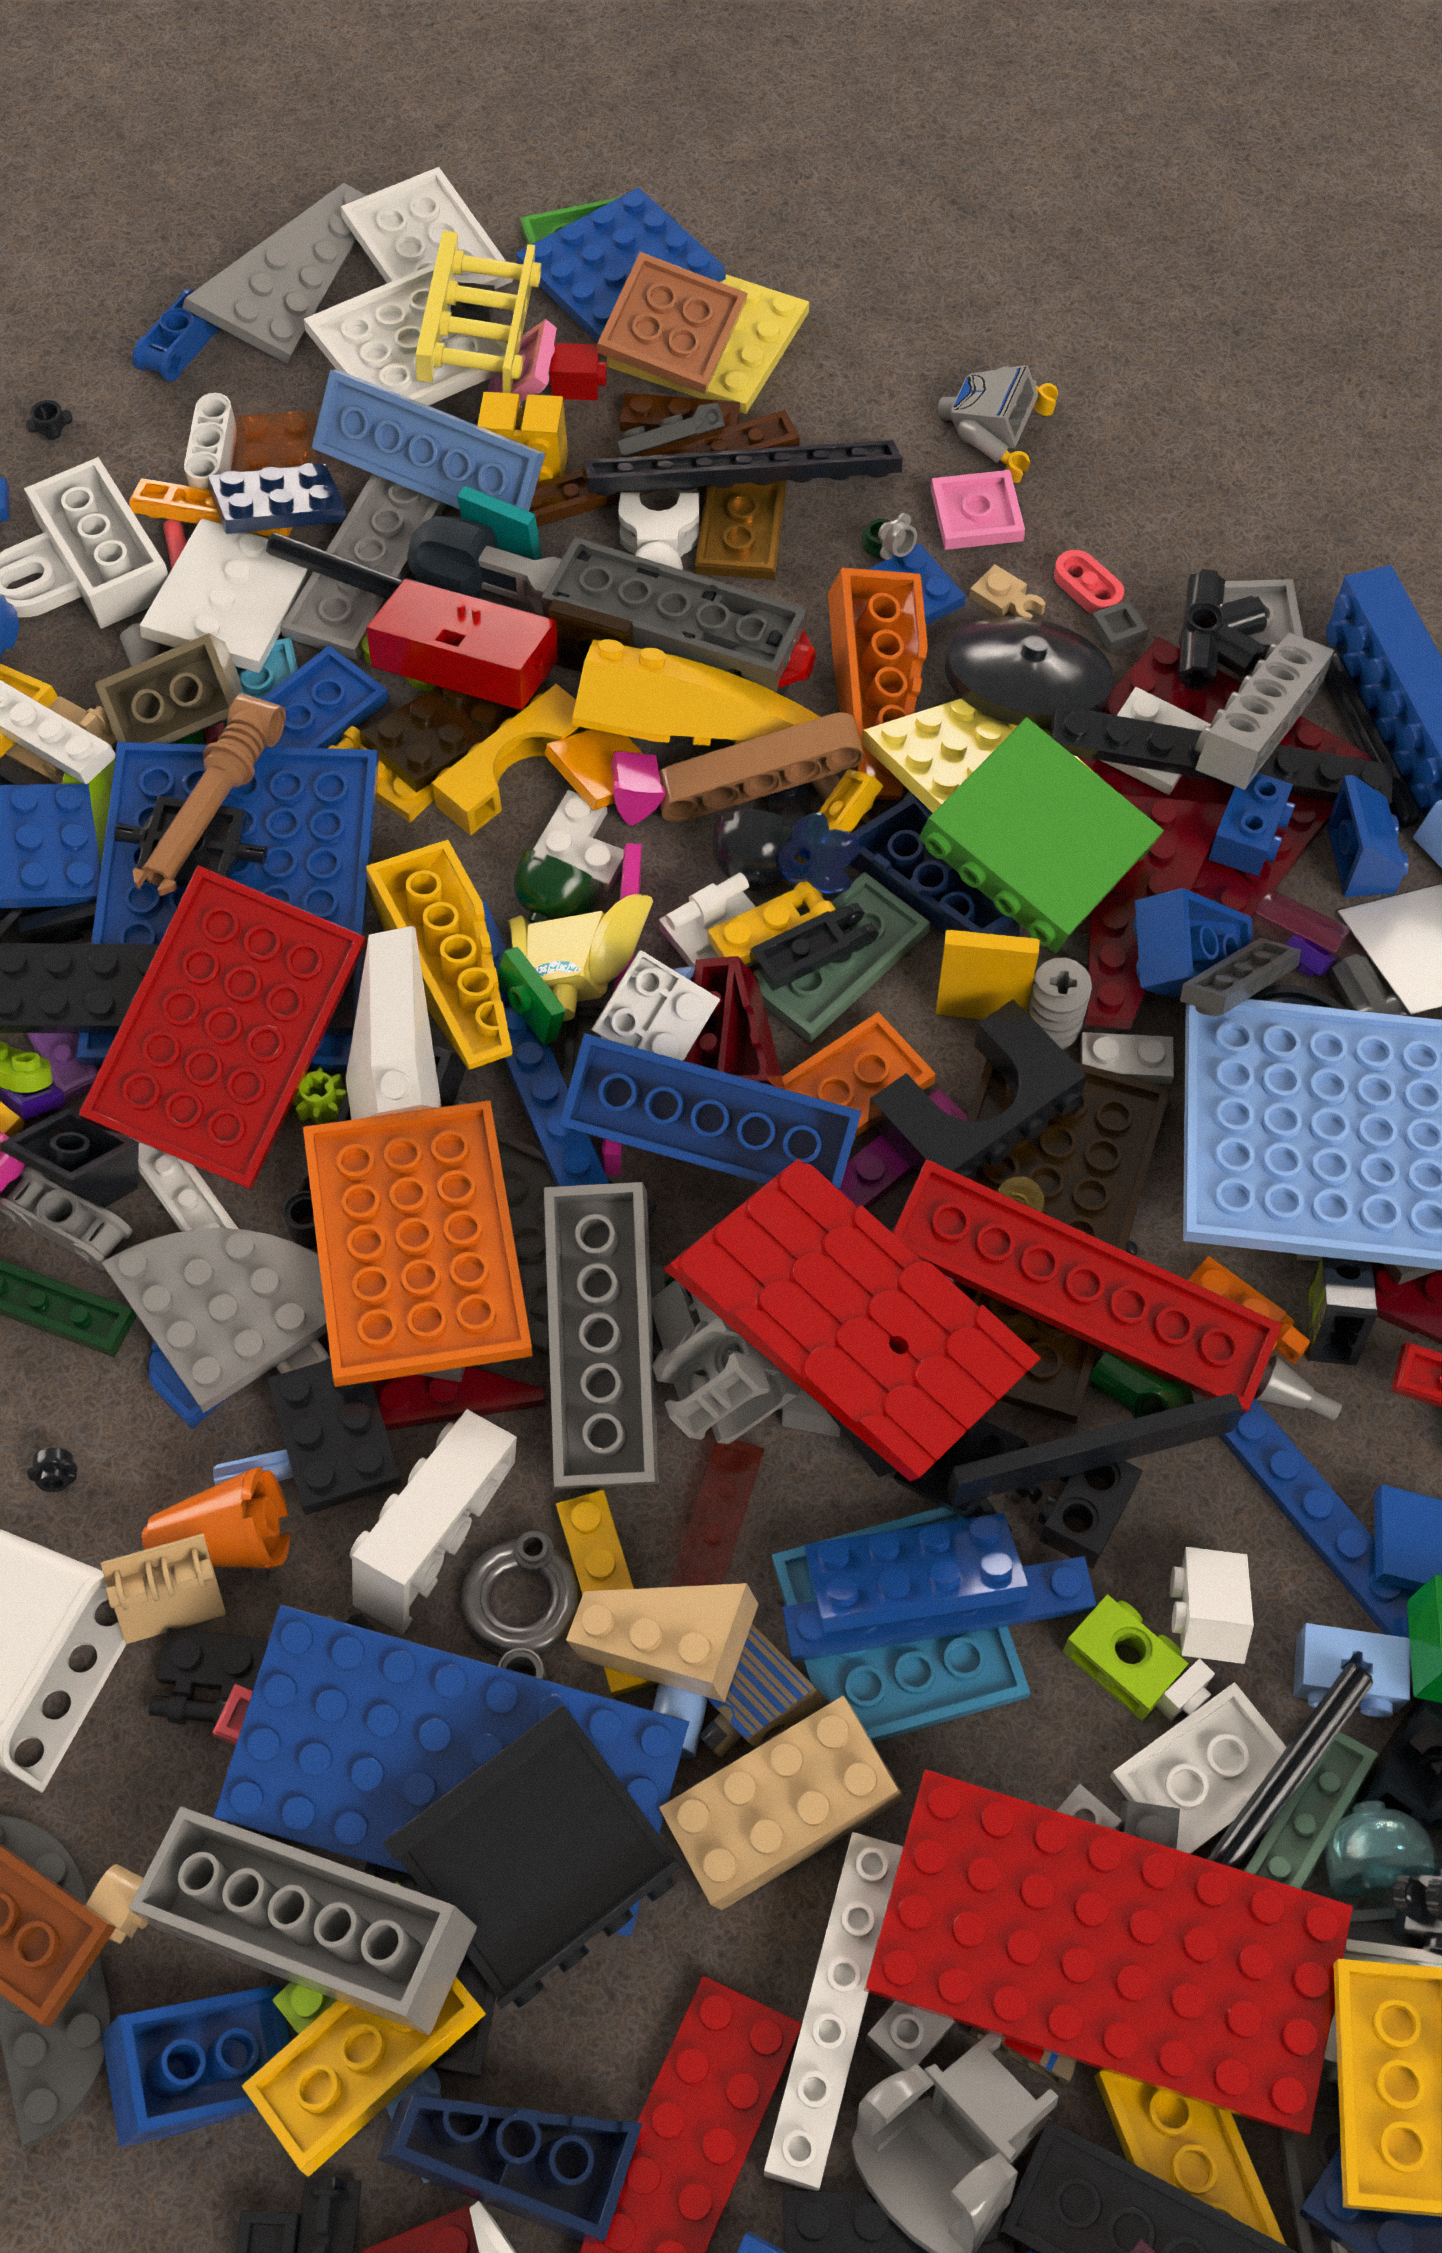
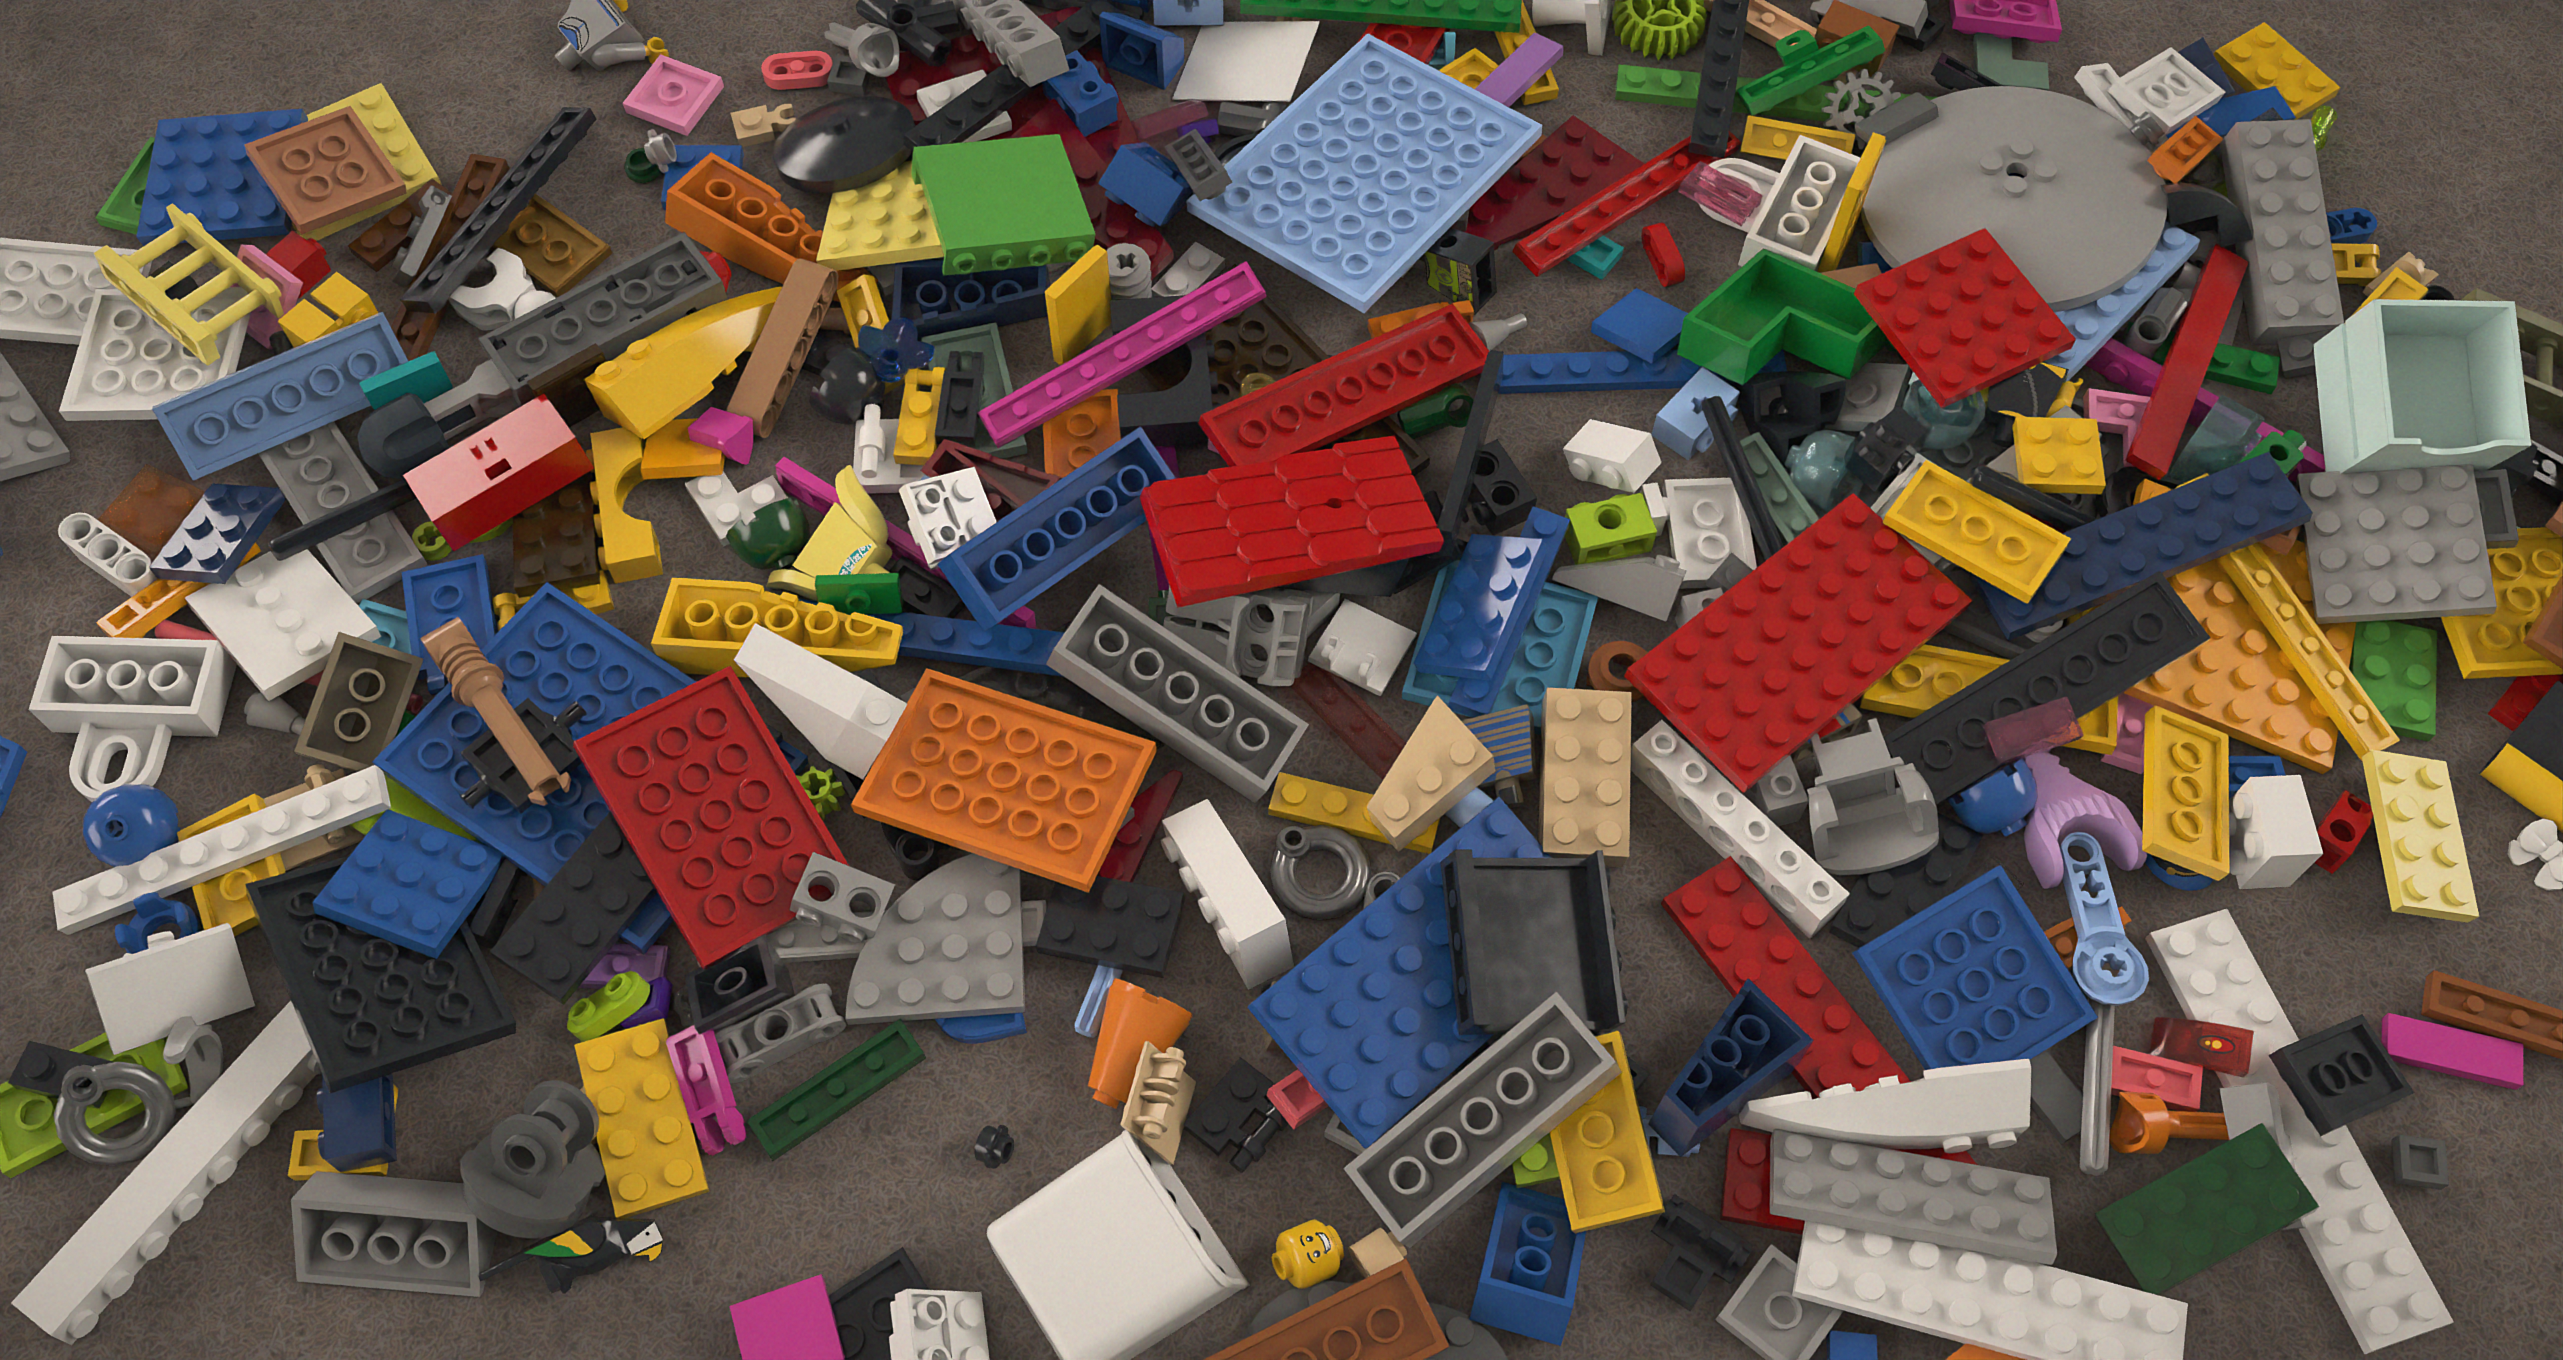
camera: 60 degrees left, 0 degrees up
(89, 1828) = (1308, 1254): none -> yellow head
(221, 1177) = (846, 887): none -> light grey brick
(801, 1485) = (1362, 647): none -> white plate
(941, 1739) = (1621, 653): none -> dark orange piece
(964, 1051) = (1122, 354): none -> dark pink tile
(1070, 1723) = (1635, 583): none -> light grey slope
(1151, 619) = (869, 46): none -> light grey piece

